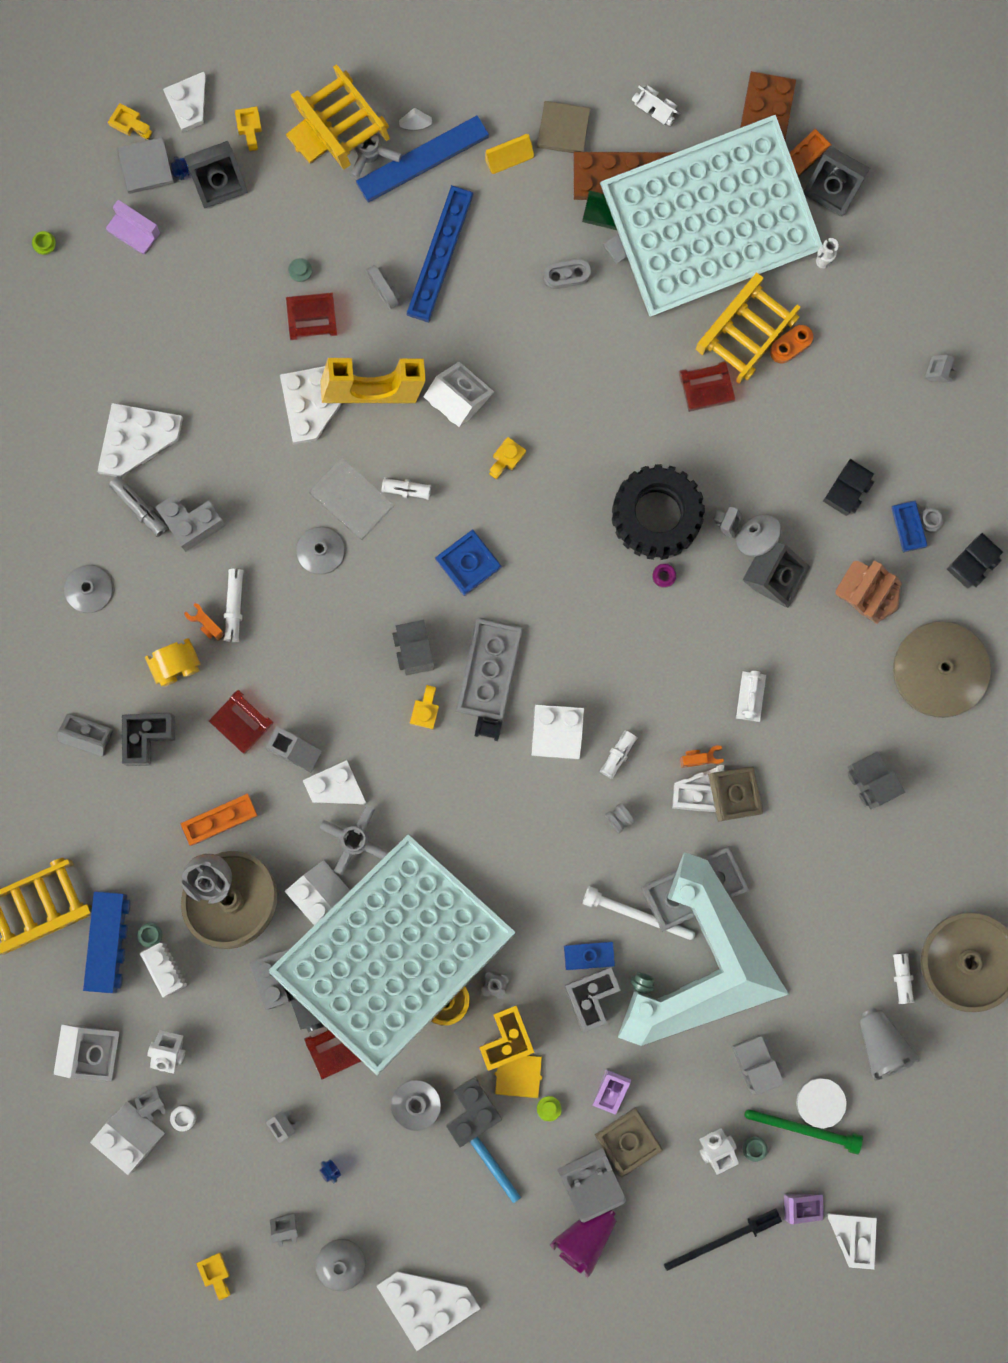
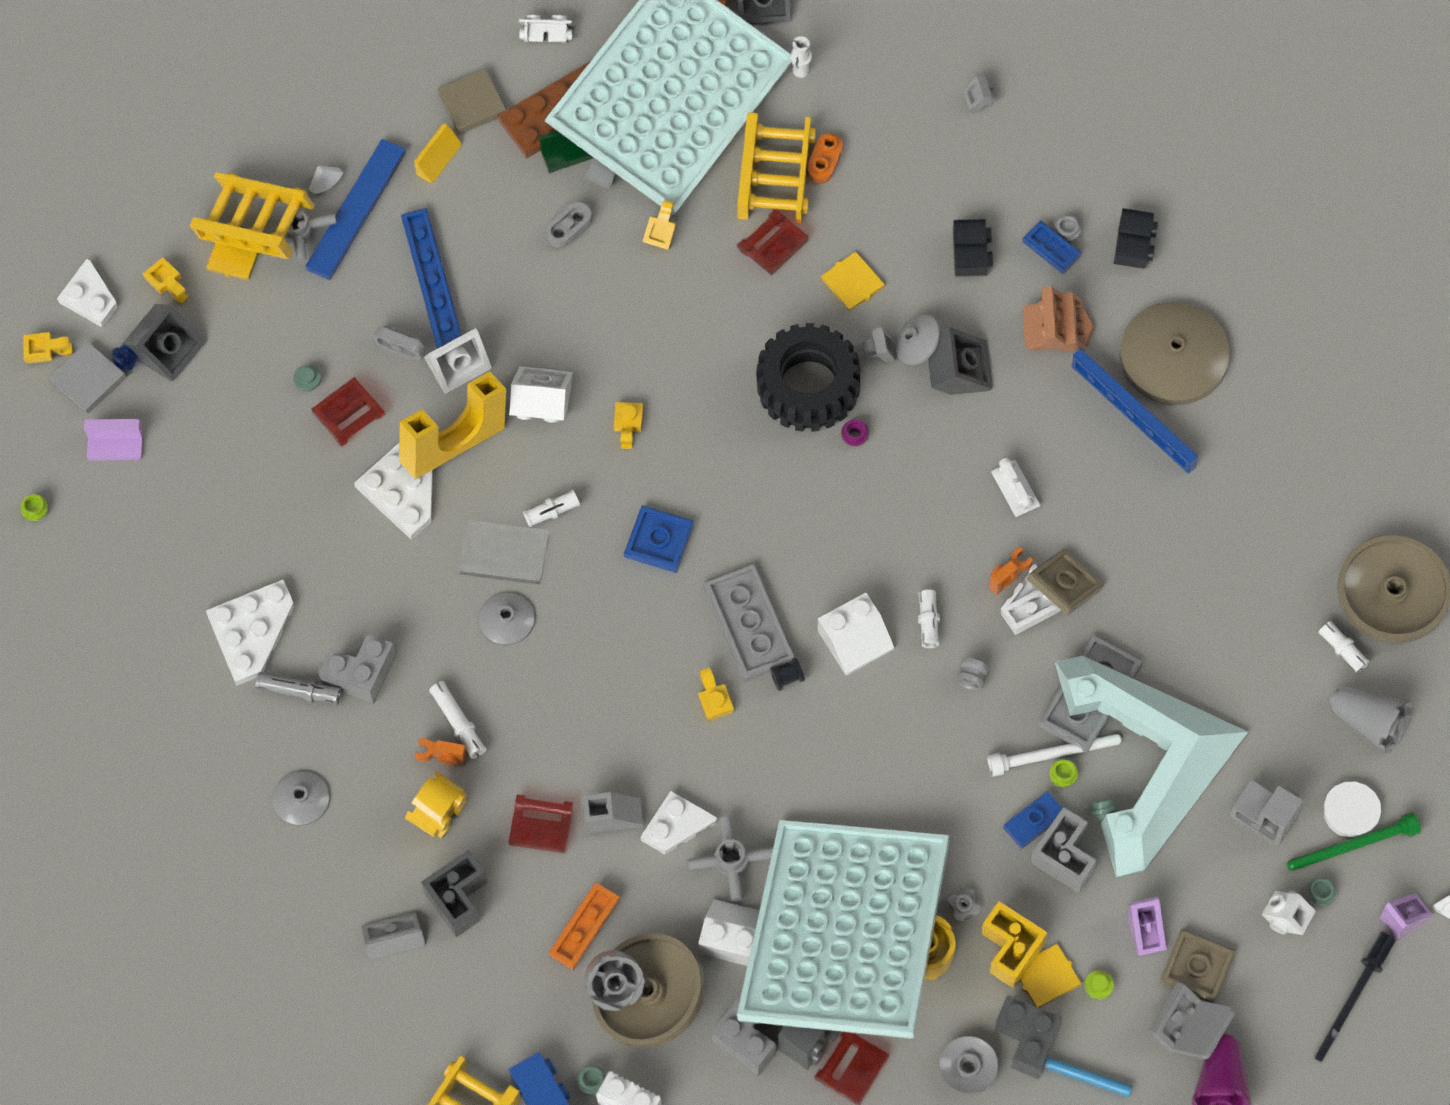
camera: 25 degrees left, 15 degrees down
(414, 647) = (664, 644): dark grey brick -> none
(415, 329) = (459, 361): none -> white slope
(631, 322) = (660, 229): none -> yellow plate
(634, 935) = (1063, 773): none -> lime plate
(745, 455) = (852, 281): none -> yellow piece
(874, 781) = (1187, 487): dark grey brick -> none
(879, 696) = (1134, 411): none -> blue tile

